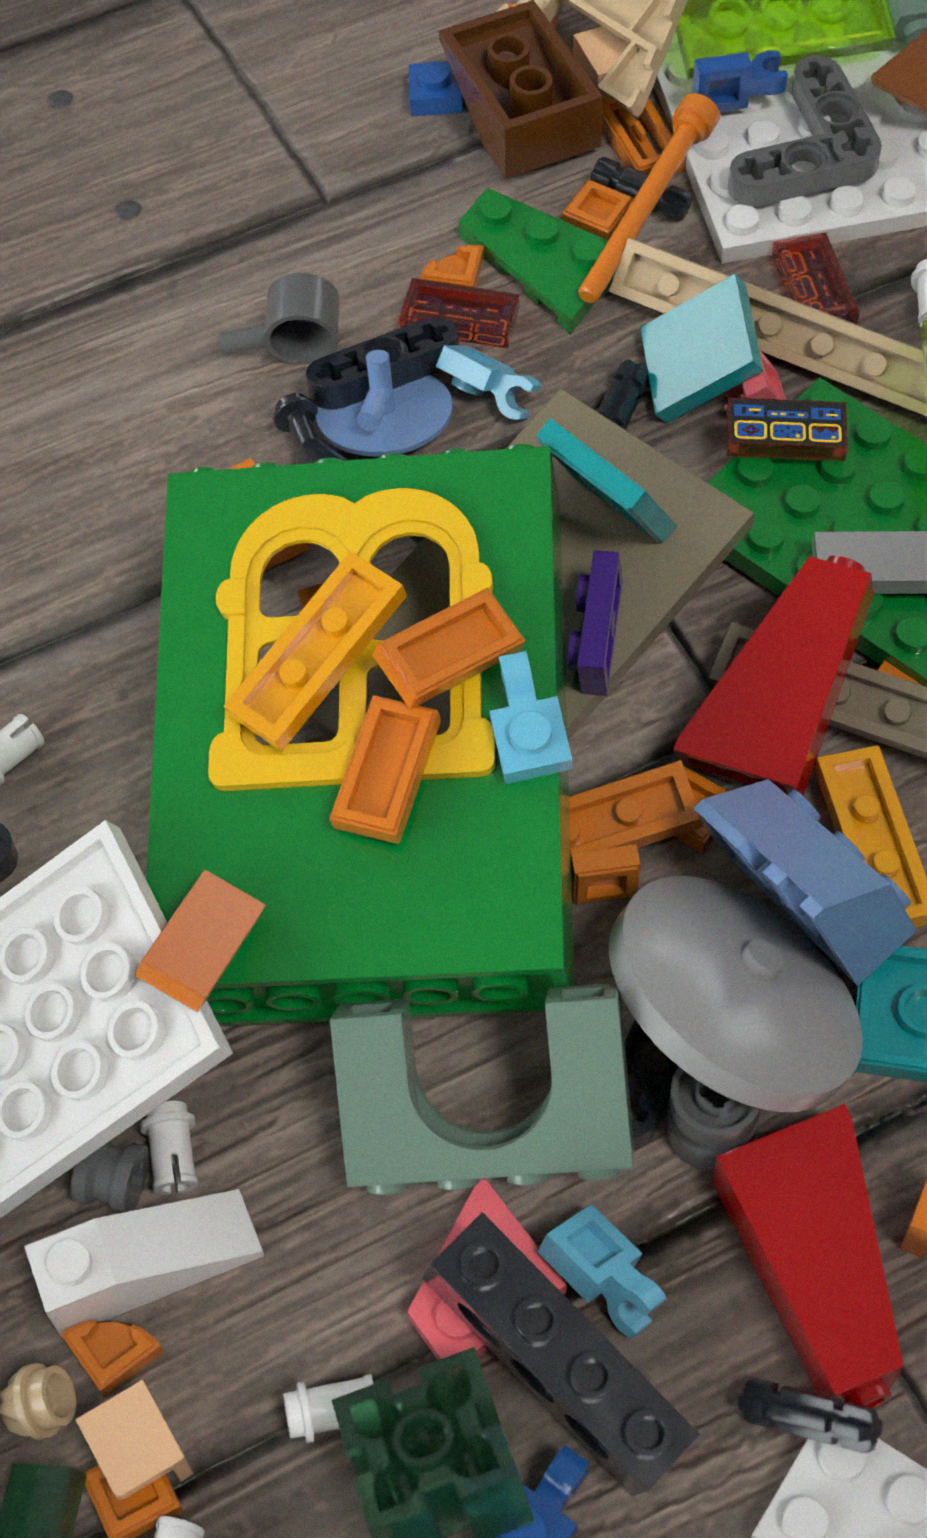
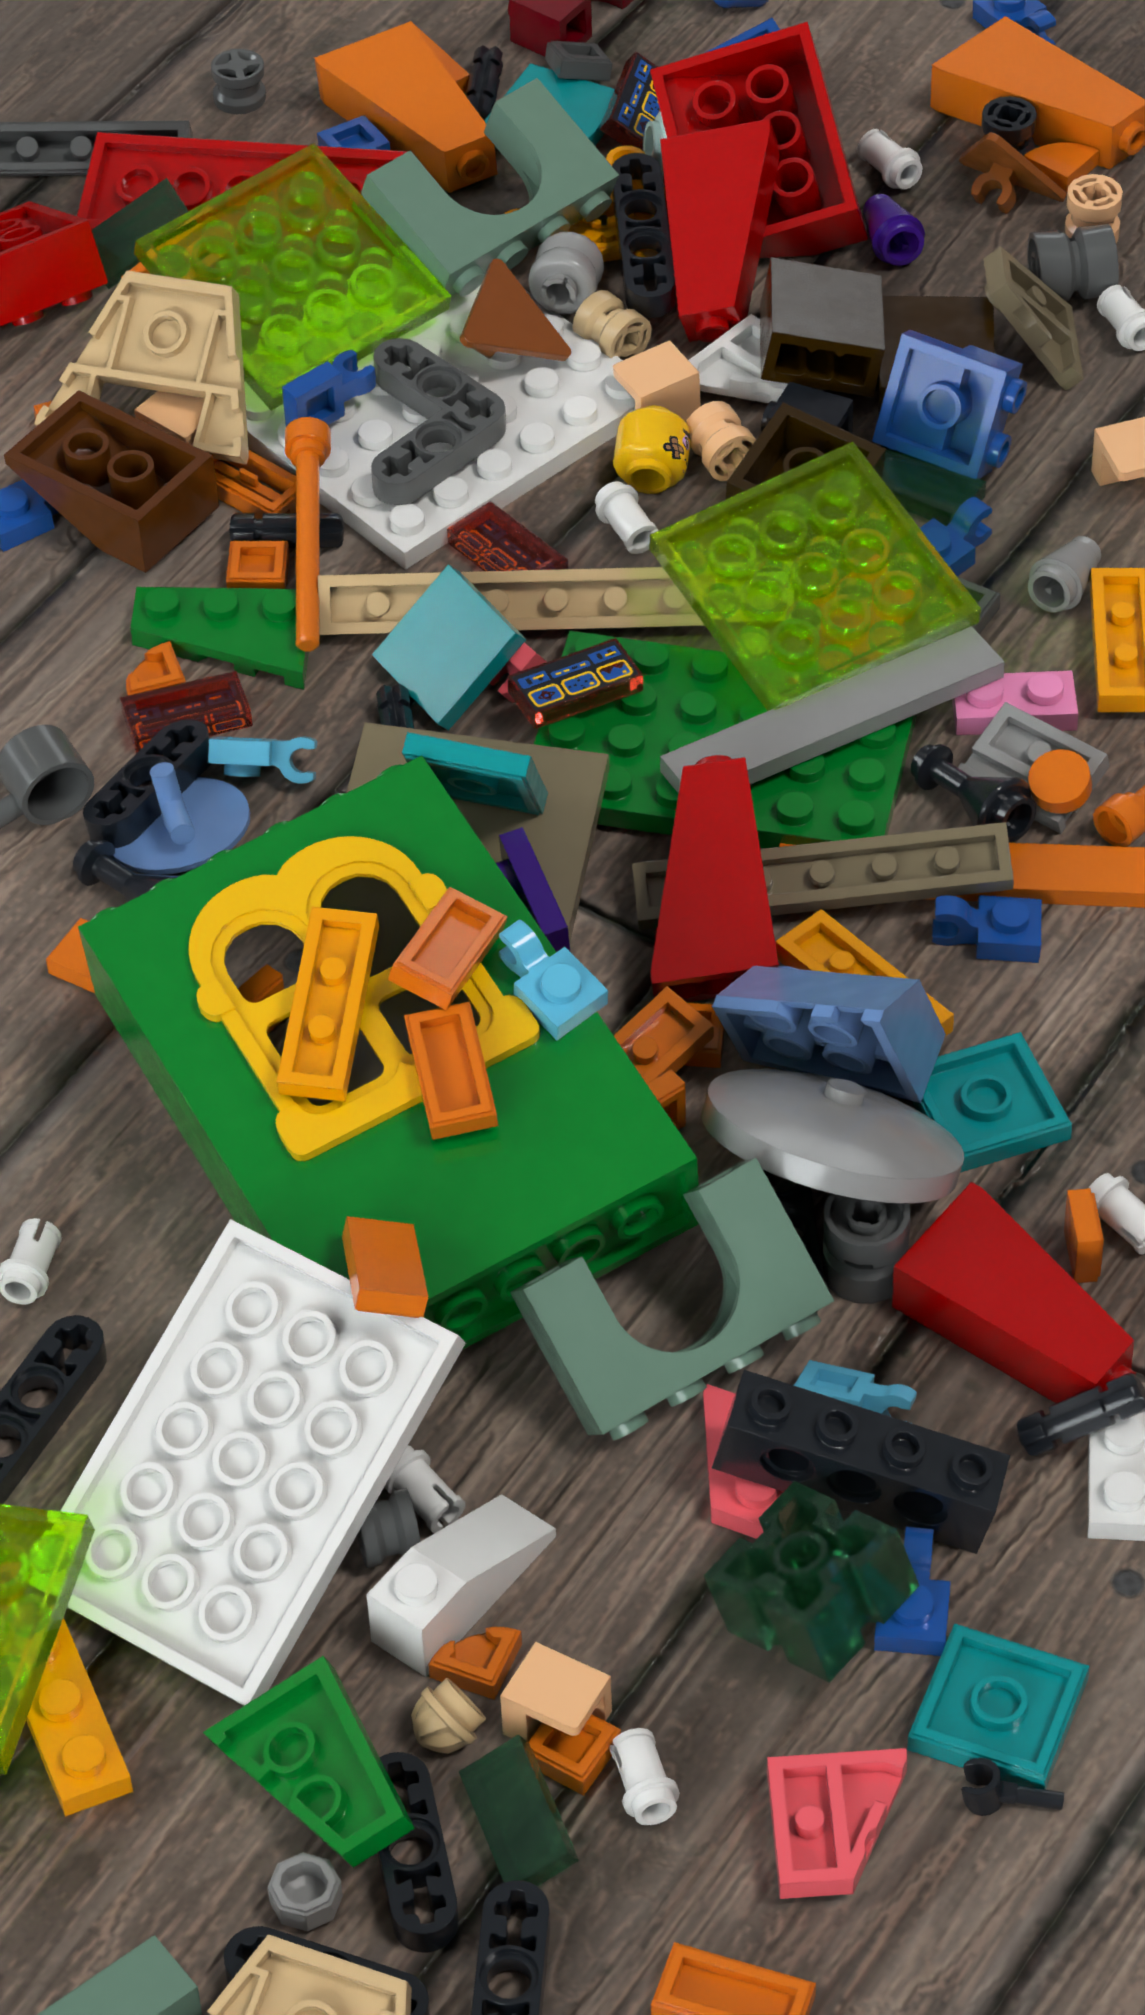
camera: 30 degrees left, 10 degrees down
(311, 1409) = (683, 1611): white pin -> none

